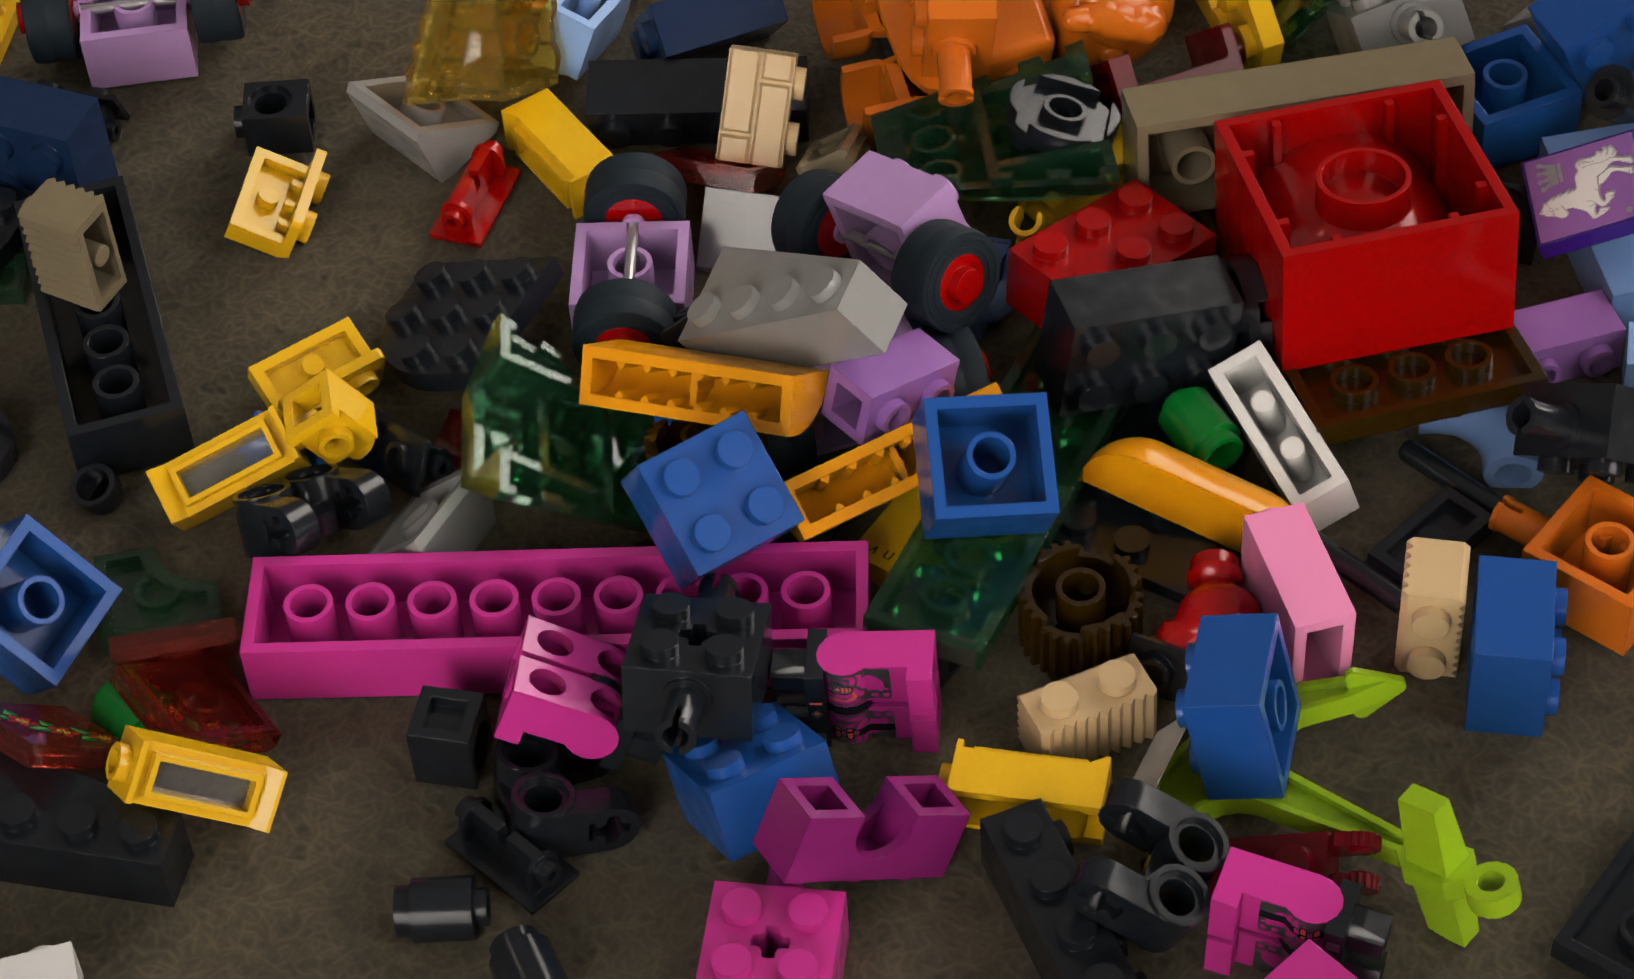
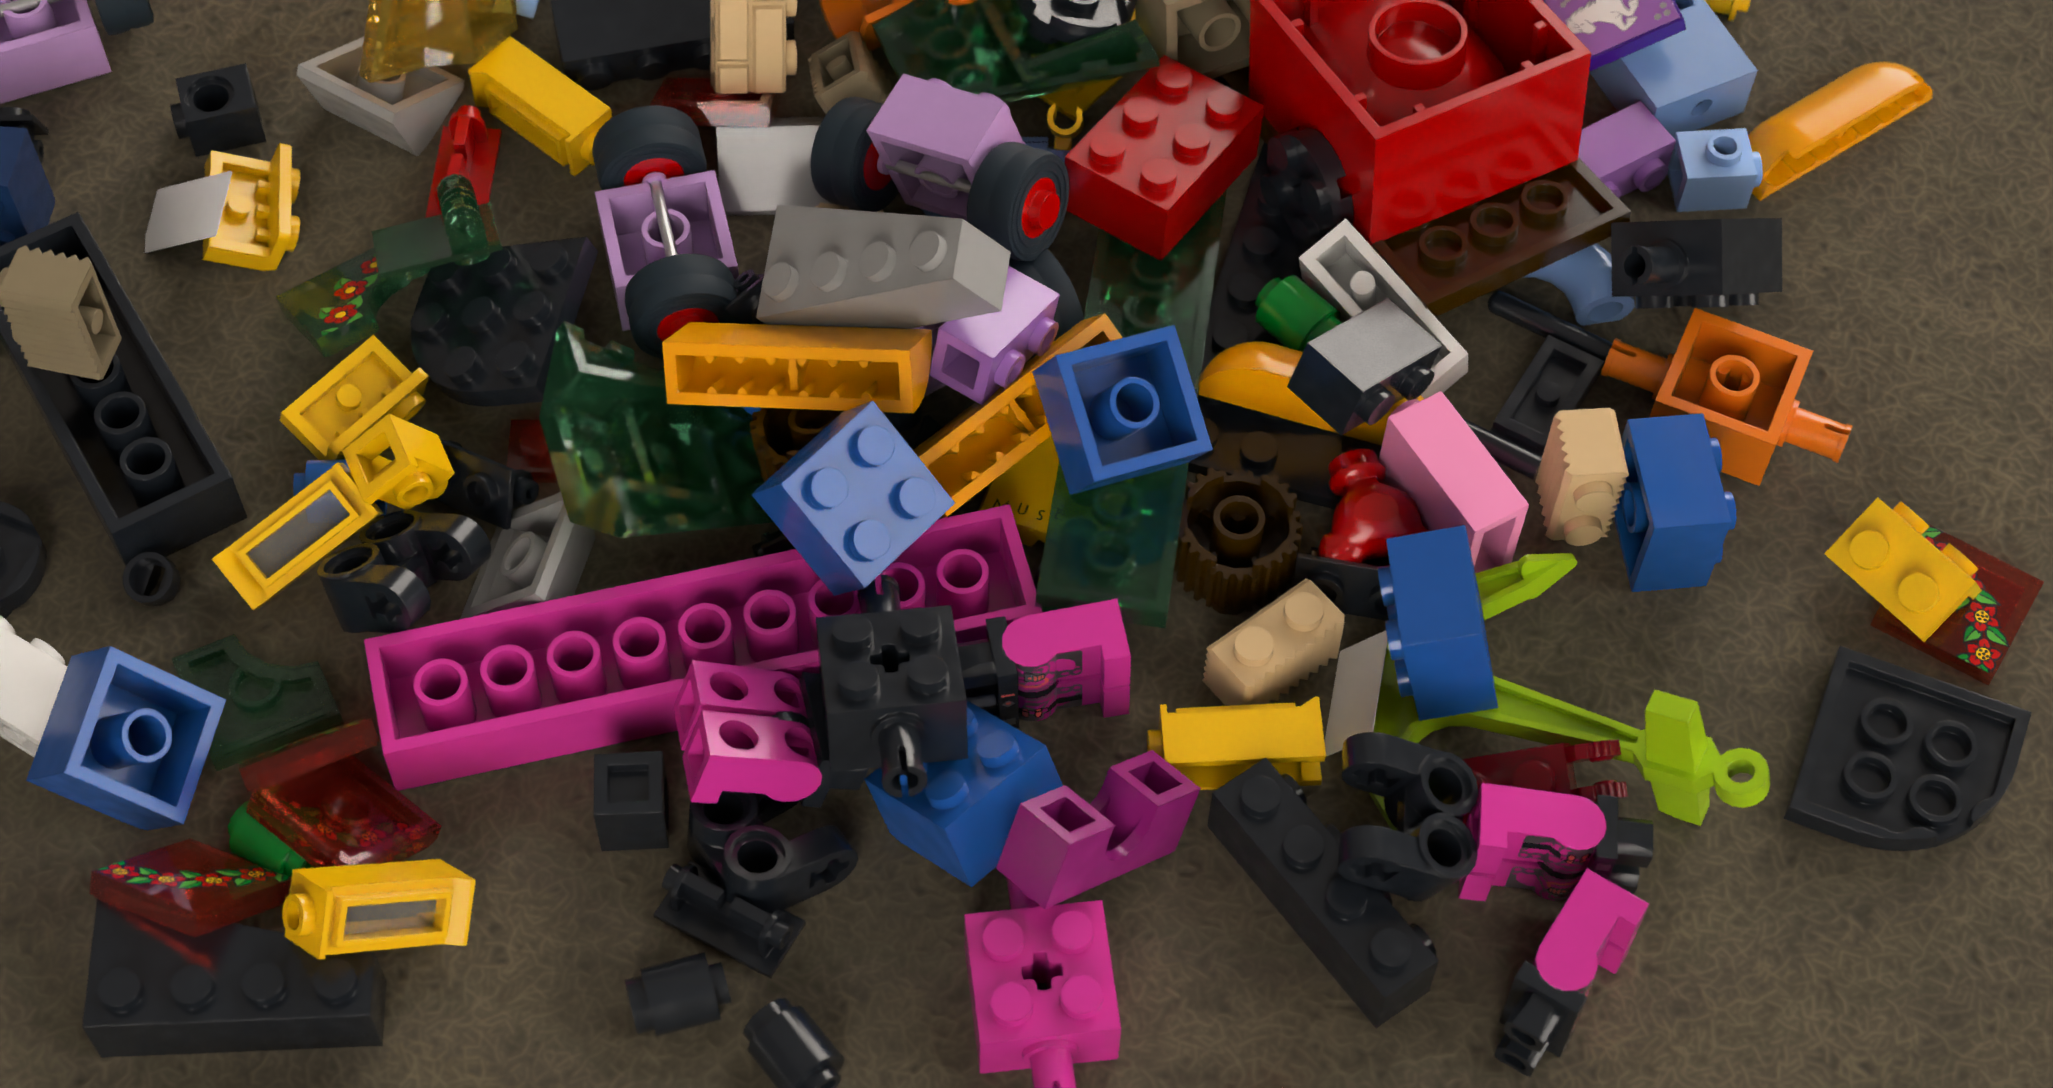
camera: 20 degrees left, 10 degrees up
(222, 195) = (187, 212): none -> white sticker
(337, 287) = (340, 303): none -> clear green tile
(448, 241) = (460, 235): none -> clear green hinge
(1136, 333) = (1221, 231): black brick -> none
(1235, 468) = (1365, 367): none -> brick

